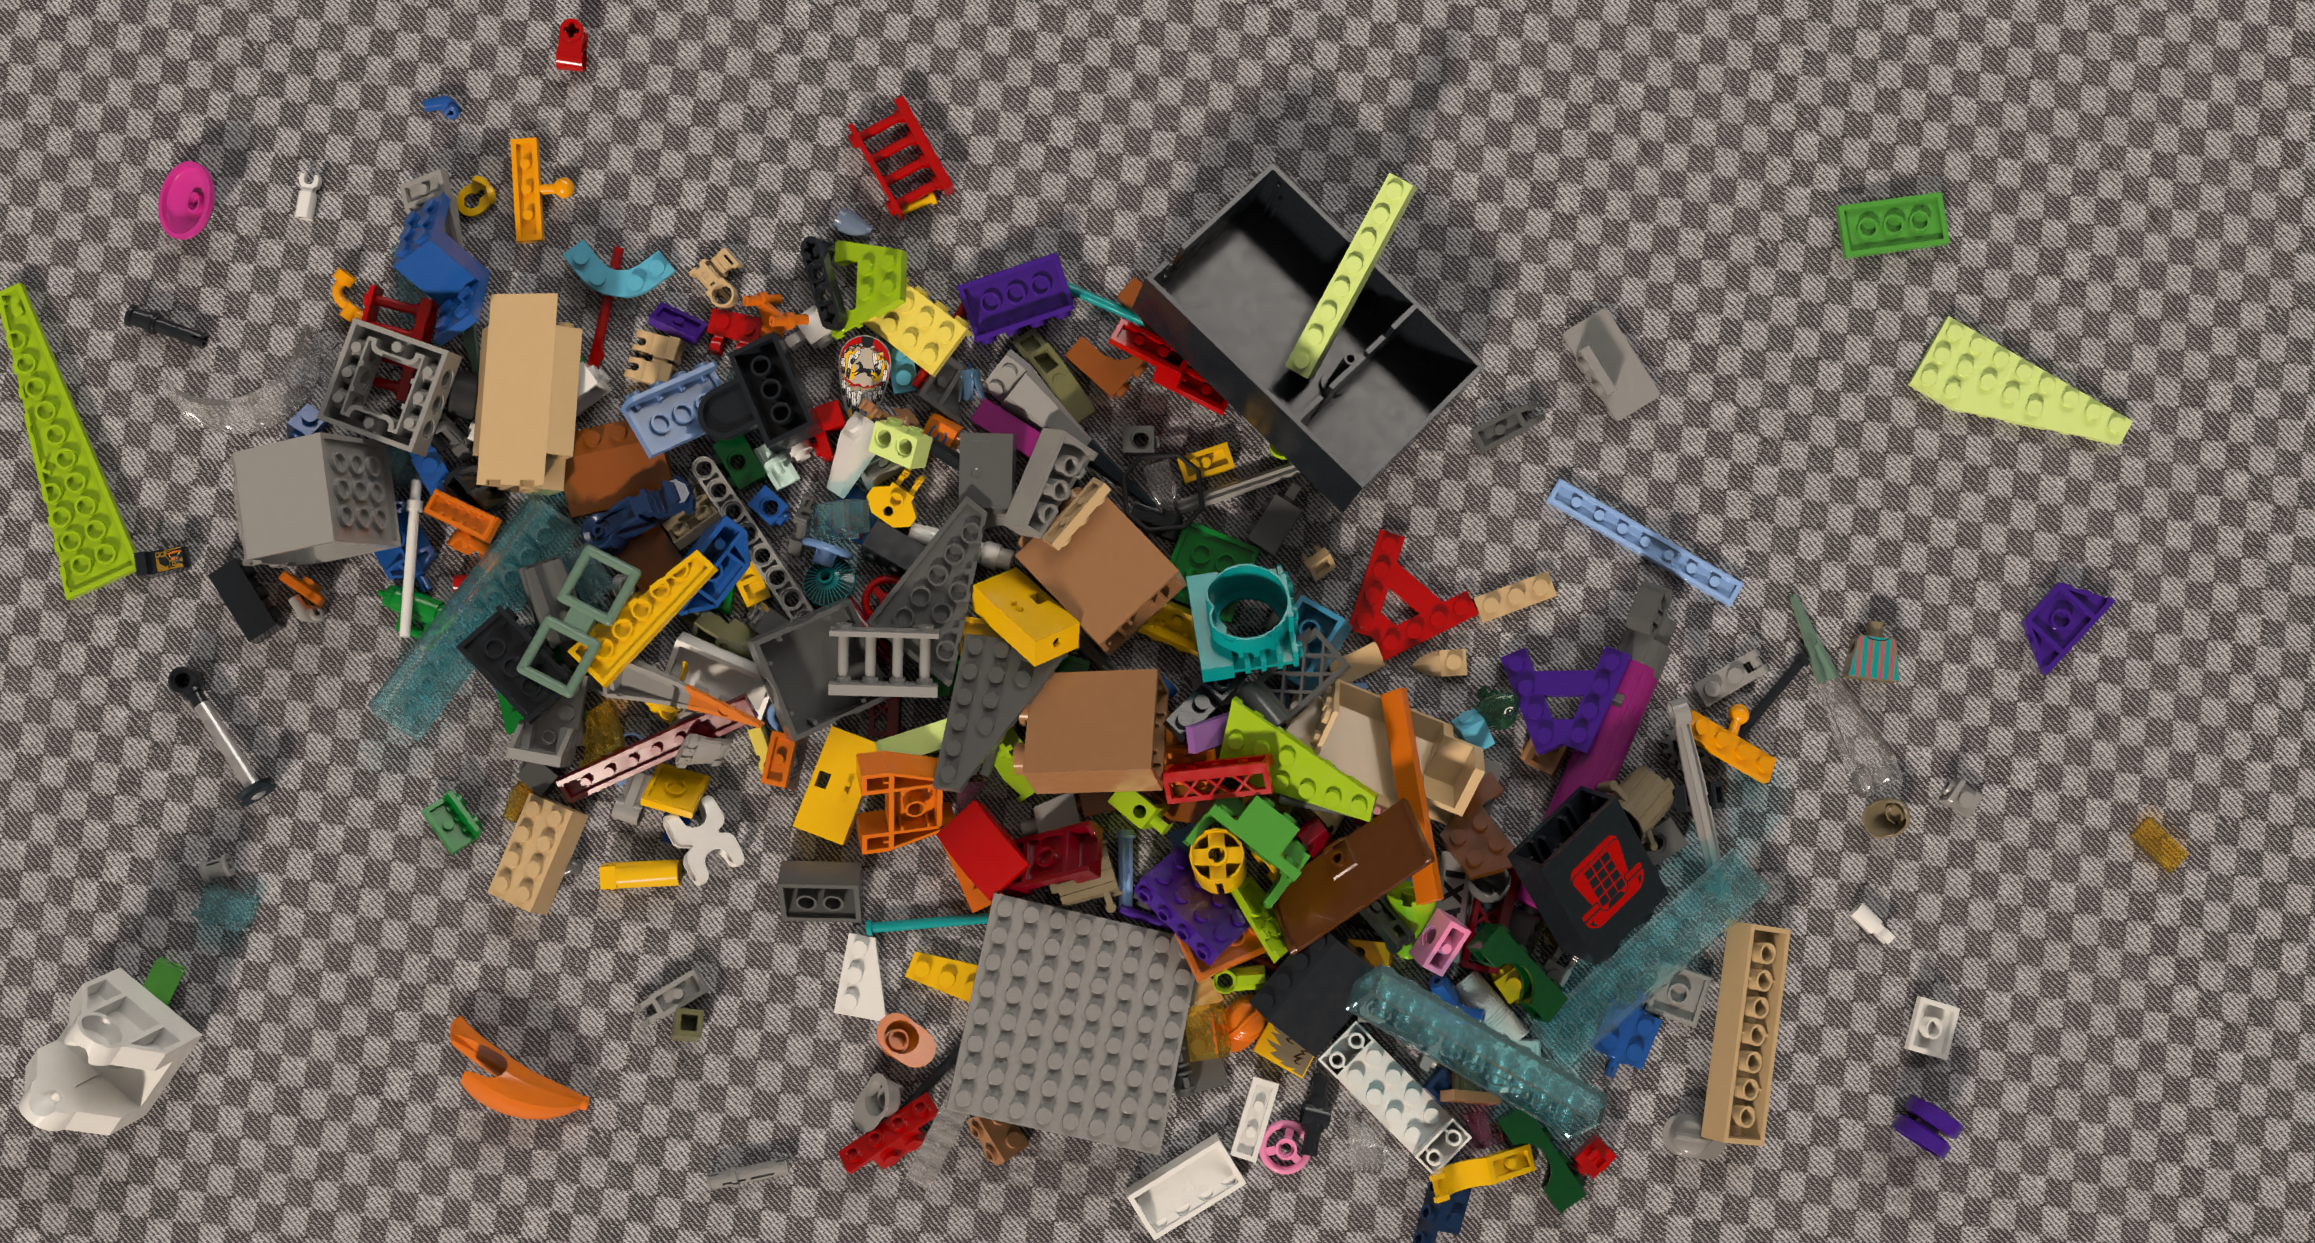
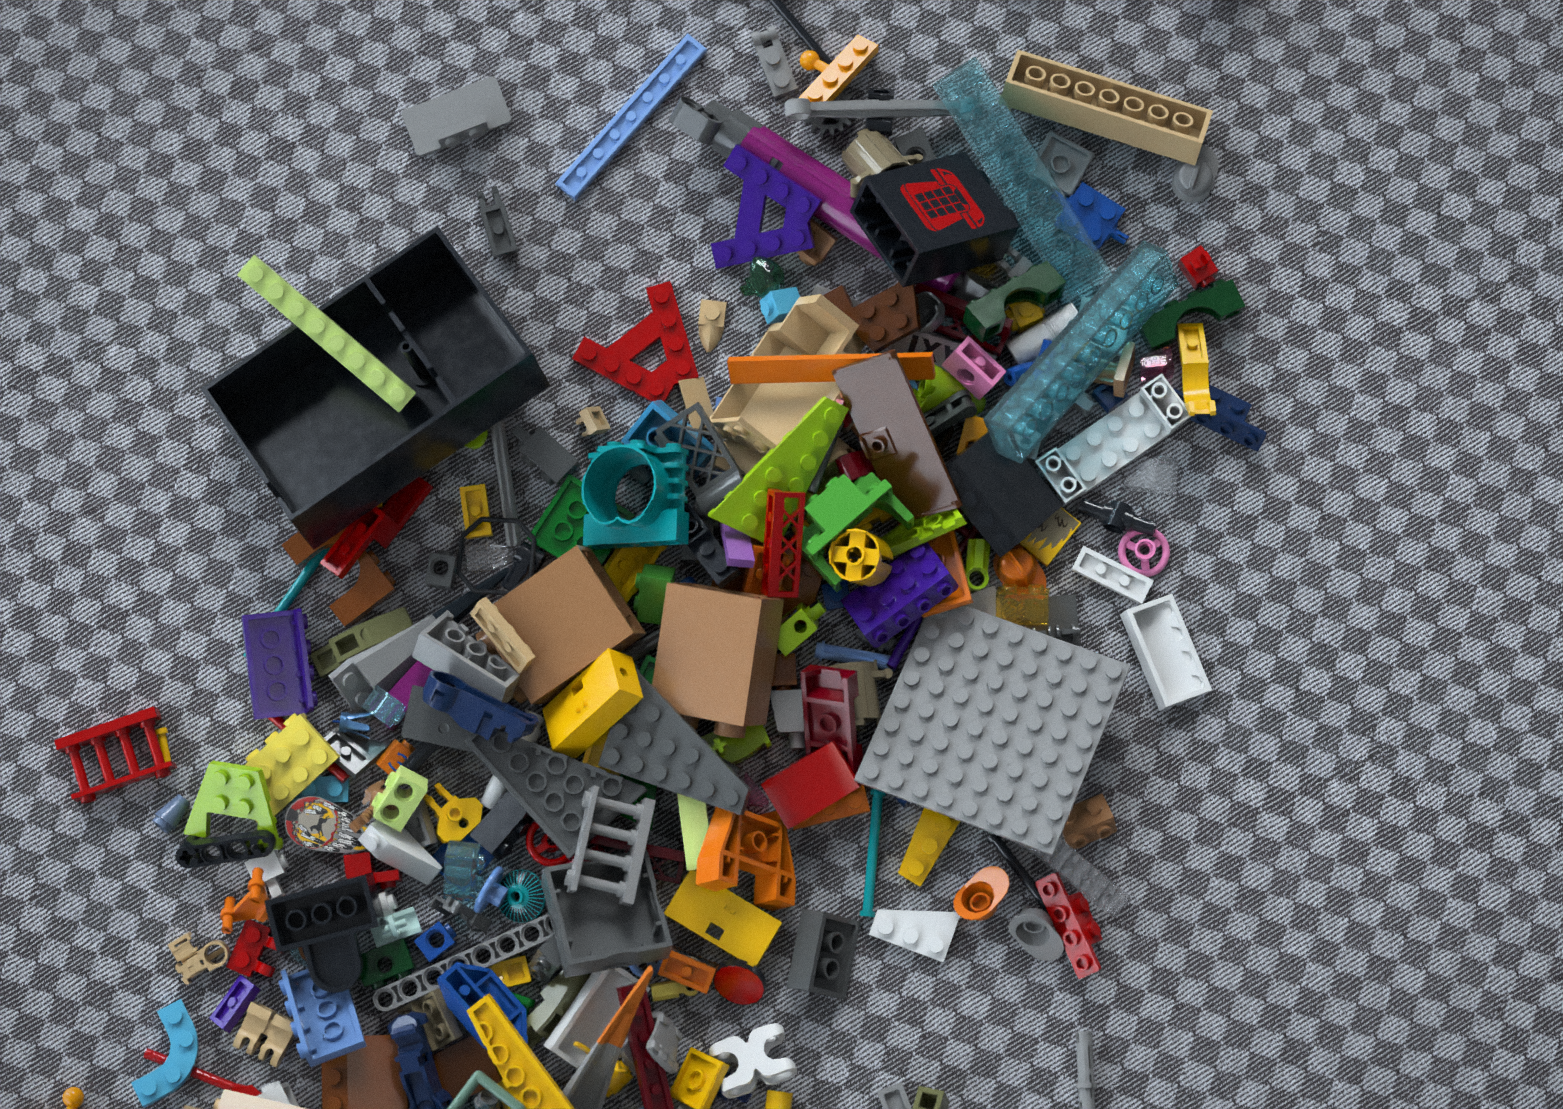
camera: 75 degrees left, 5 degrees down
(778, 813) = (739, 982): none -> red tile
(988, 410) = (384, 707): none -> clear light blue brick
(995, 499) = (476, 709): none -> dark blue piece
(1157, 654) = (652, 590): none -> bright green brick
(1514, 597) = (660, 245): tan plate -> none

